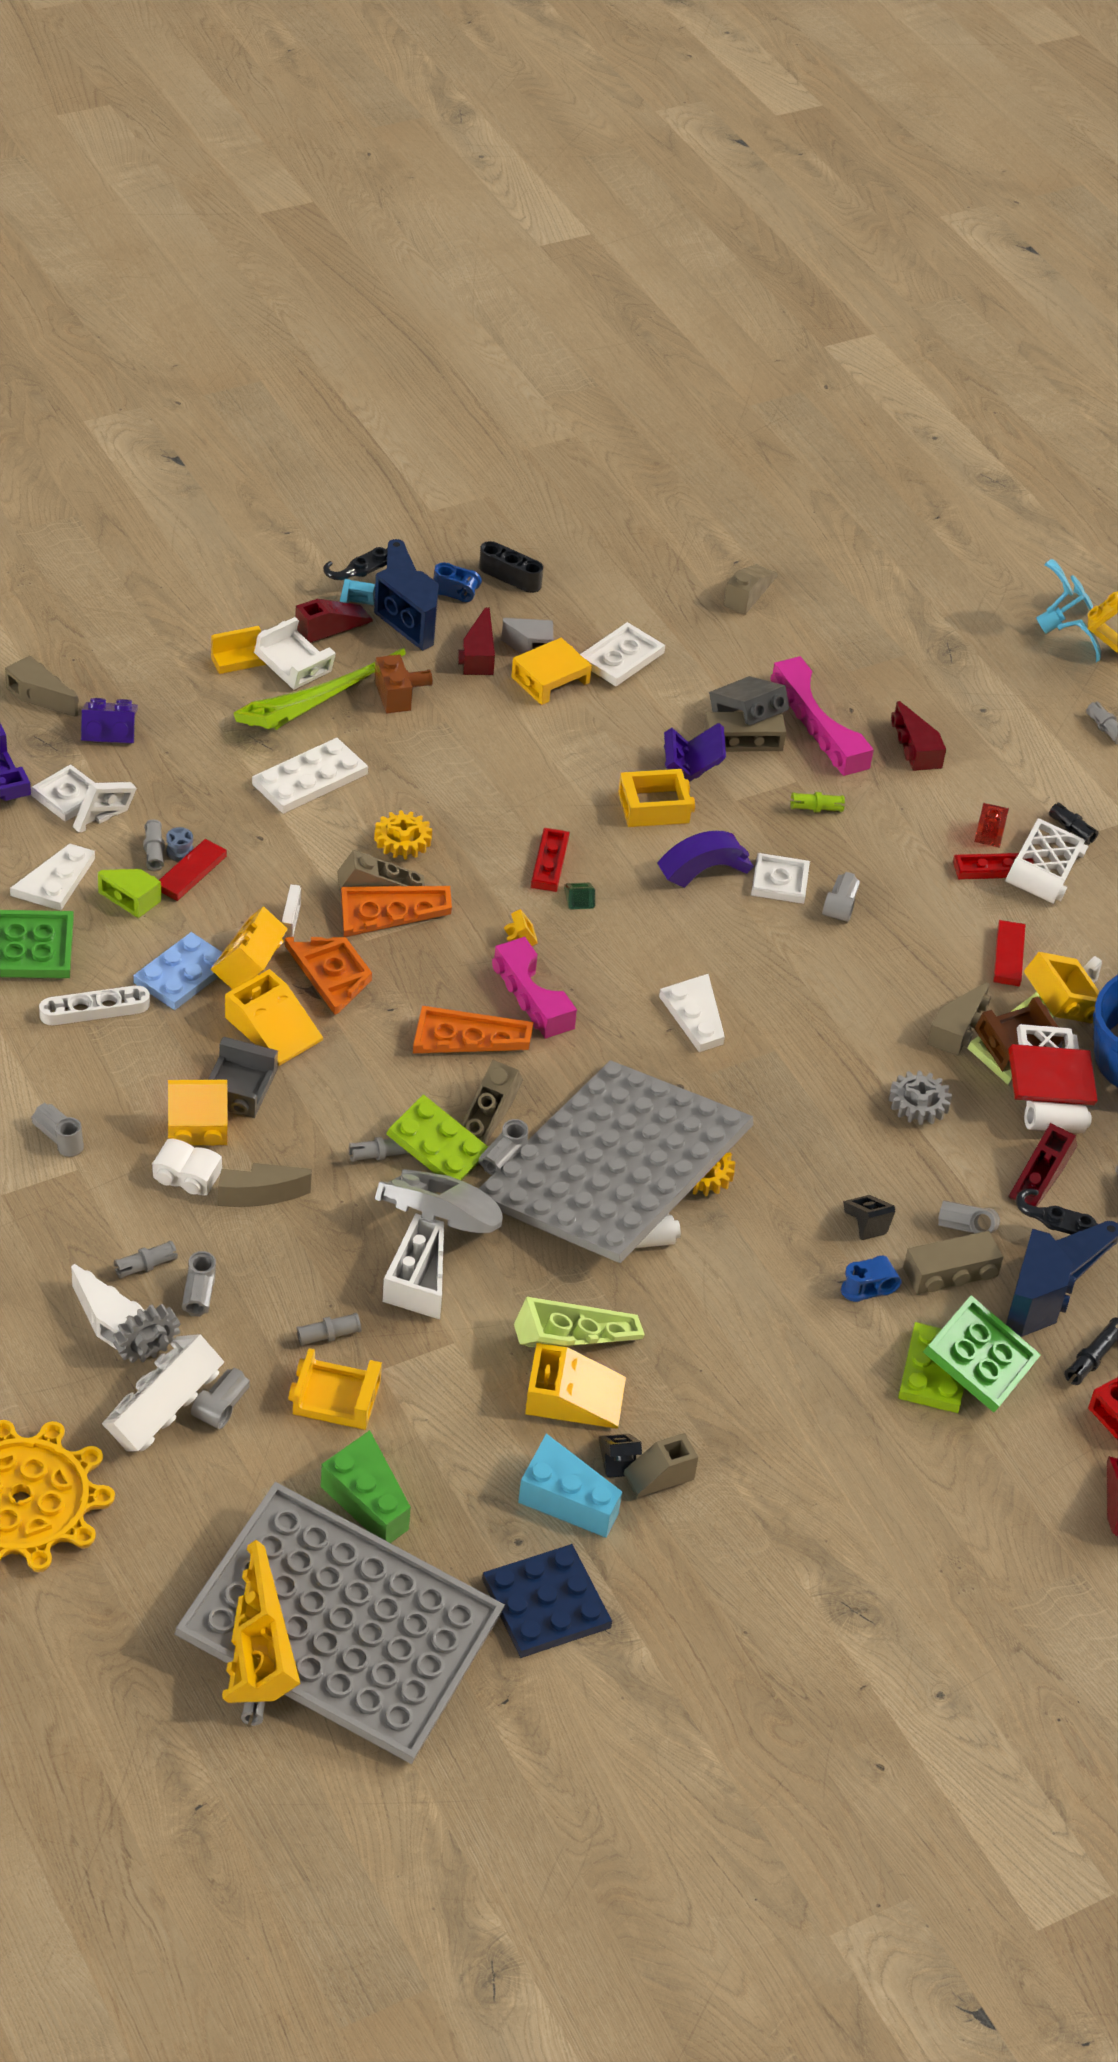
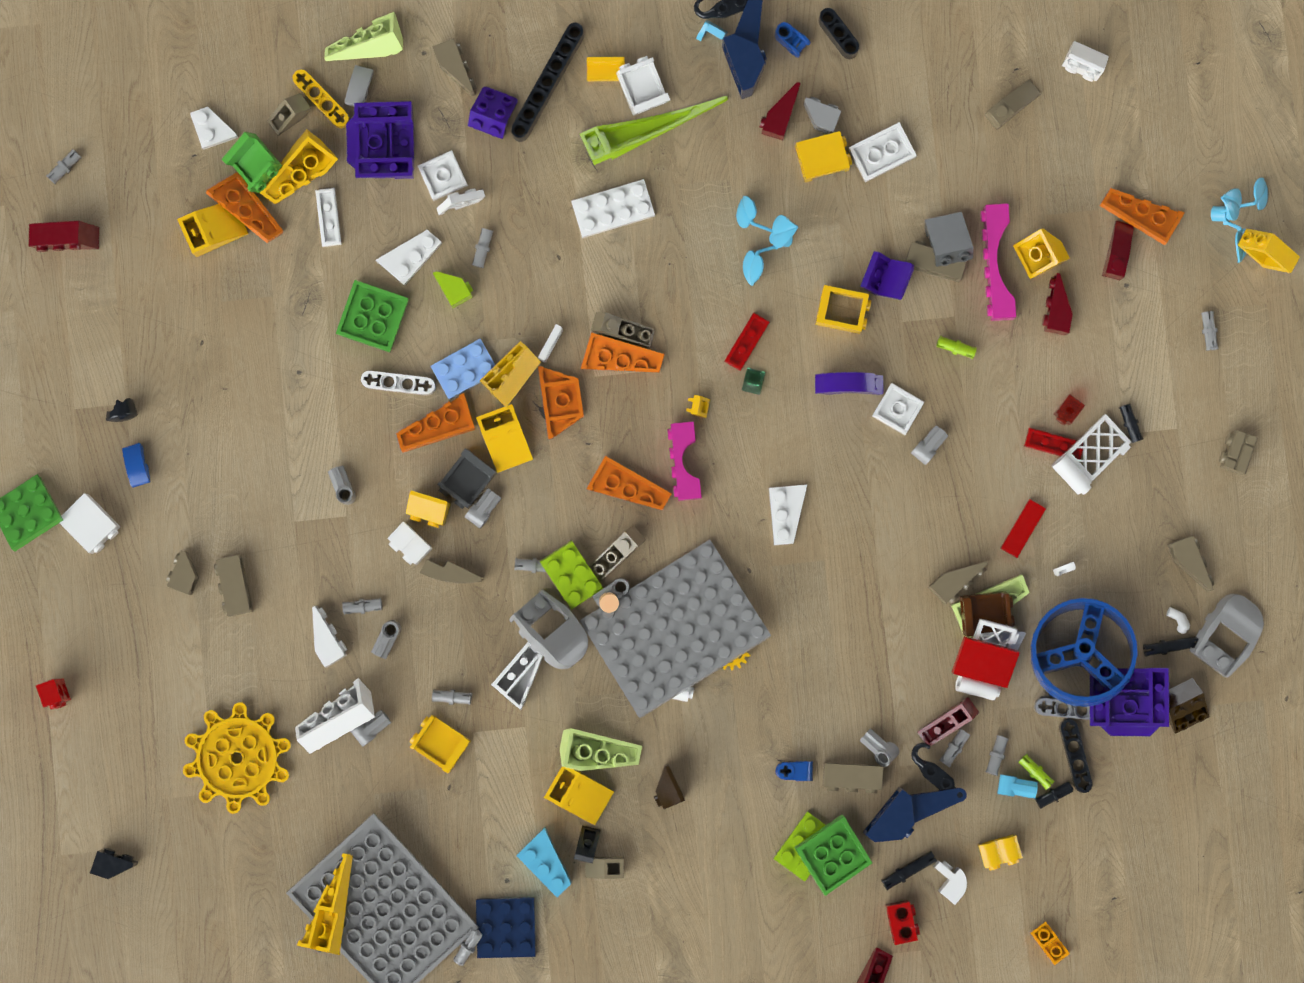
camera: 30 degrees right, 40 degrees up
(146, 1333) = (339, 674): light grey gear -> none
(169, 678) = (547, 73): none -> black beam
(179, 843) = (497, 250): sand blue wheel -> none
(179, 1030) = (442, 424): none -> orange wing
(192, 869) = (500, 277): red tile -> none
(275, 1108) = (480, 512): none -> light grey piece
(326, 618) = (684, 54): dark red slope -> none
(367, 1488) = (431, 823): bright green wedge -> none
(396, 683) = (705, 138): dark orange brick -> none
(403, 834) = (641, 288): yellow gear -> none
(500, 1636) = (467, 947): none -> light grey axle
(508, 1149) = (608, 602): none -> light nougat tile
(521, 779) = (780, 237): none -> medium azure plant
(706, 1338) = (668, 790): none -> dark brown slope
(812, 530) = (1085, 61): none -> white slope
(864, 695) = (1040, 252): none -> yellow slope
(872, 1214) = (817, 721): black slope -> none
(920, 1097) = (893, 646): light grey gear -> none
(956, 681) = (1118, 251): none -> dark red slope
(958, 642) = (1149, 218): none -> orange wing
(1063, 986) = (1025, 582): yellow window -> none
(1070, 1192) = (955, 747): none -> light grey pin

